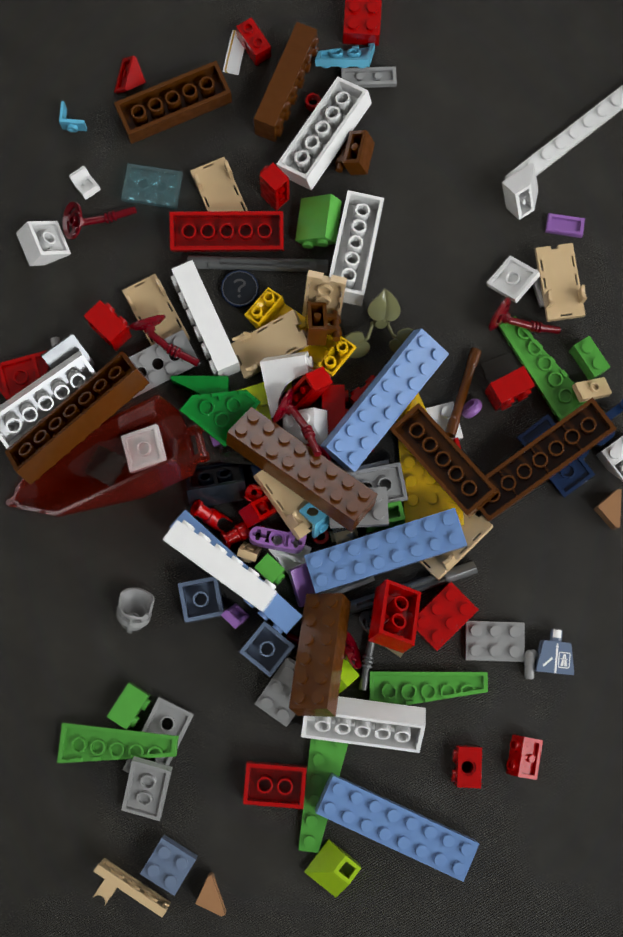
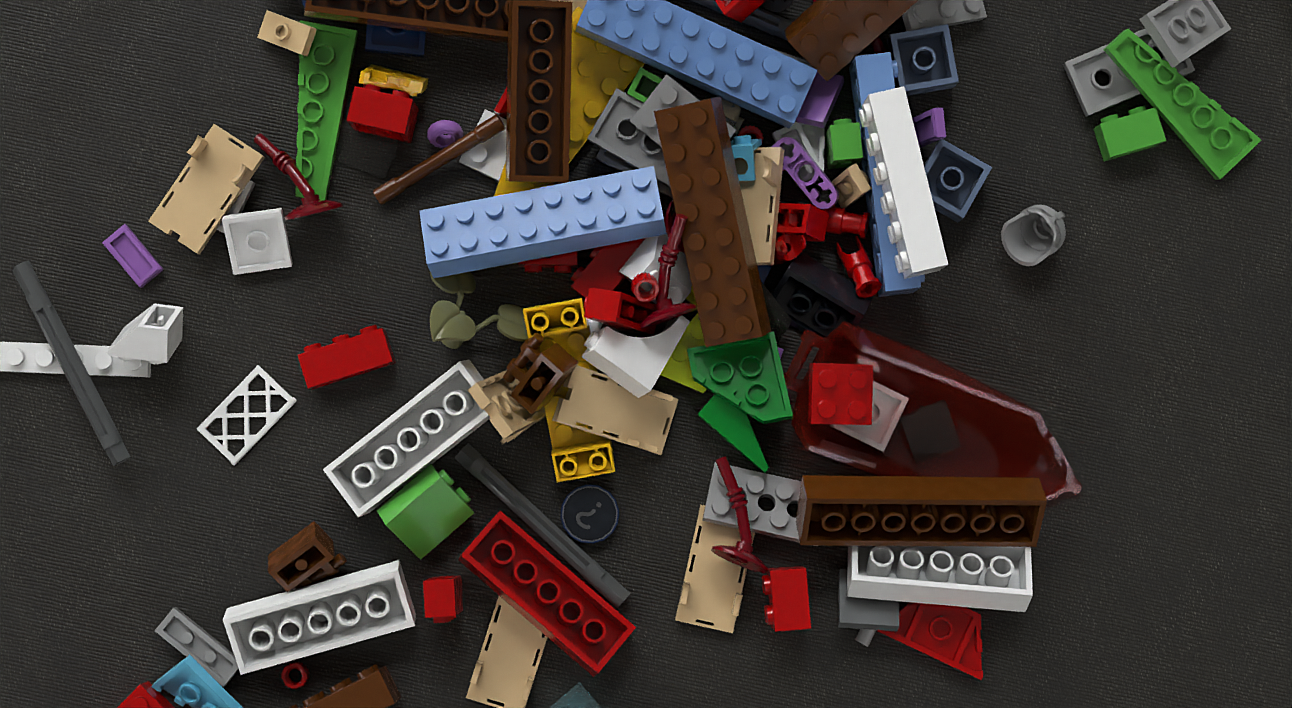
camera: 140 degrees left, 5 degrees up
(164, 438) = (840, 394): none -> red brick
(206, 321) = (666, 505): white brick -> none
(303, 403) = (645, 296): none -> red axle
(421, 262) = (346, 357): none -> red brick
(456, 190) = (222, 412): none -> white window
(521, 410) = (393, 79): none -> yellow wing
(546, 149) = (71, 363): none -> dark grey piece
(589, 358) = (255, 71): bright green brick -> none

